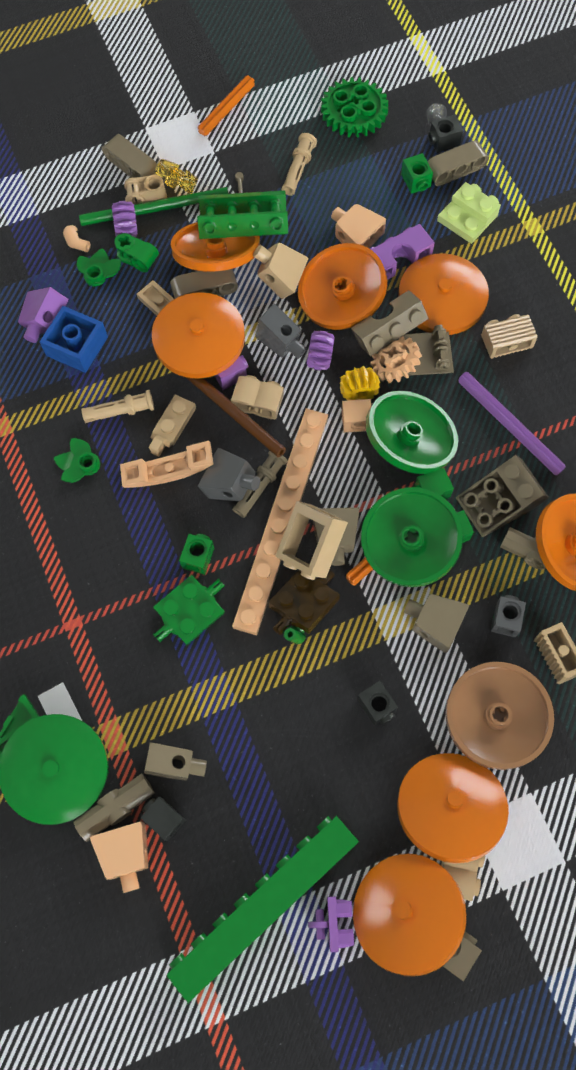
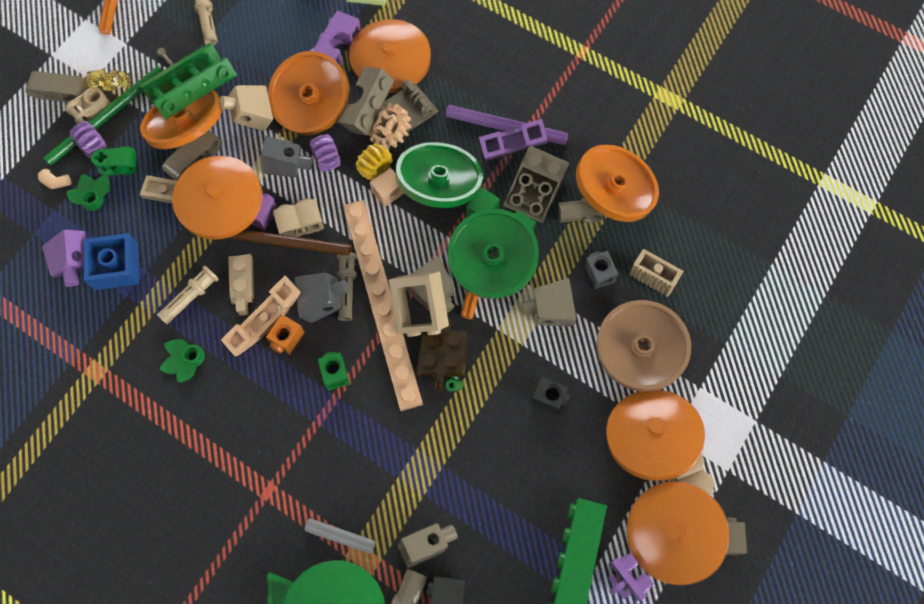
camera: 35 degrees left, 0 degrees up
(58, 702) = (299, 560): white sticker -> none
(105, 704) = (340, 536): none -> light grey axle
(181, 485) = (285, 325): none -> orange brick
(189, 610) = (356, 419): green plate -> none
(358, 225) = (288, 38): light nougat torso -> none
(504, 441) = (513, 141): none -> medium lavender arch
(509, 335) = (462, 59): tan brick -> none

